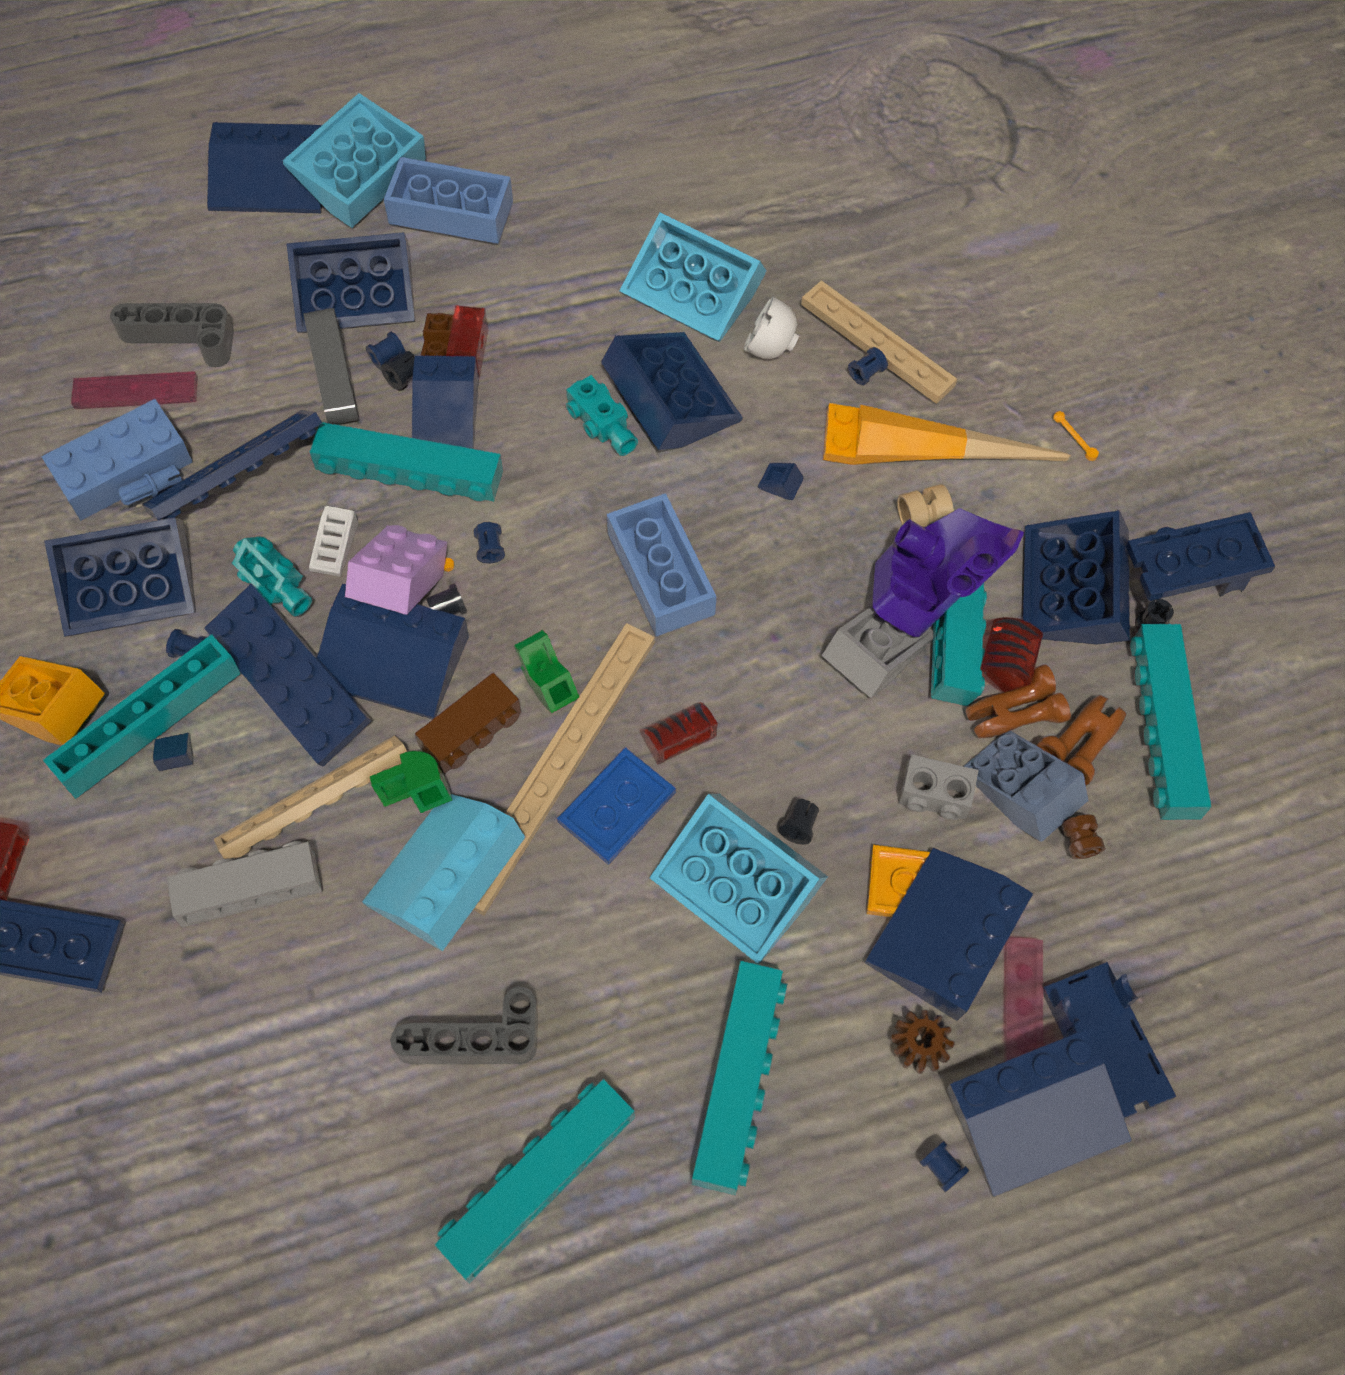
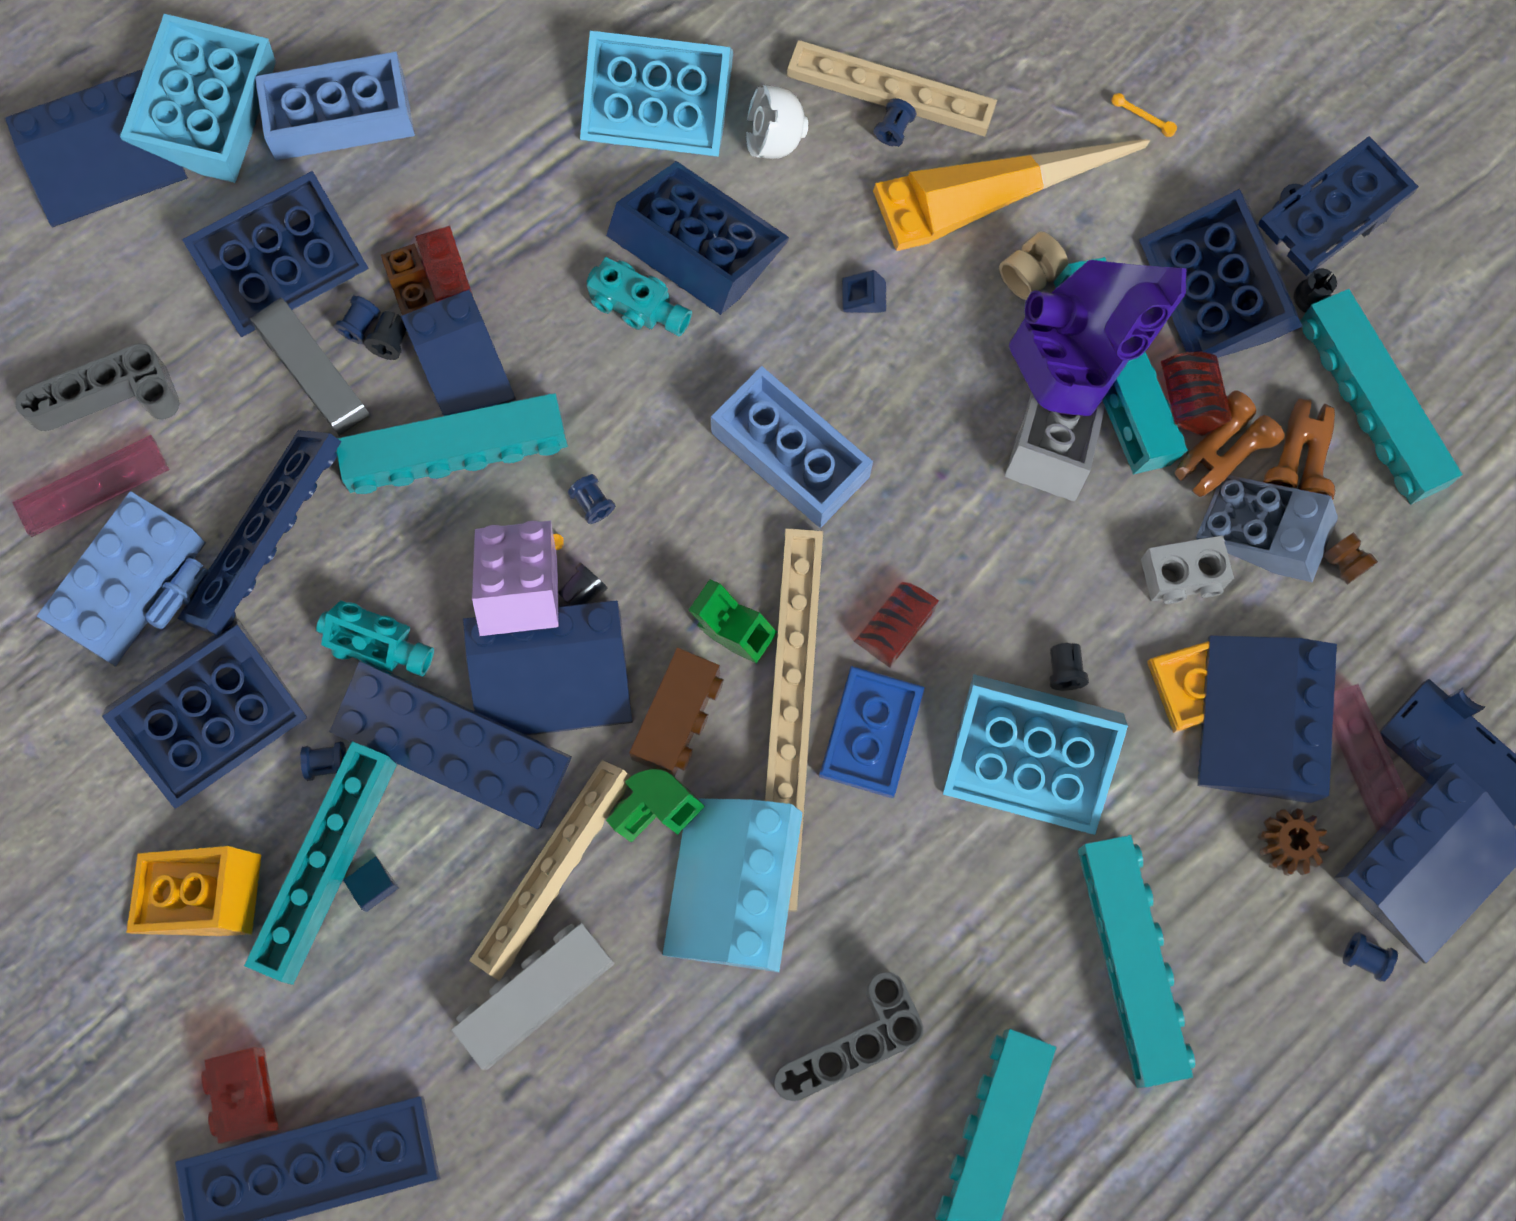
camera: 25 degrees left, 10 degrees up
(339, 522) = (414, 539): white slope -> none

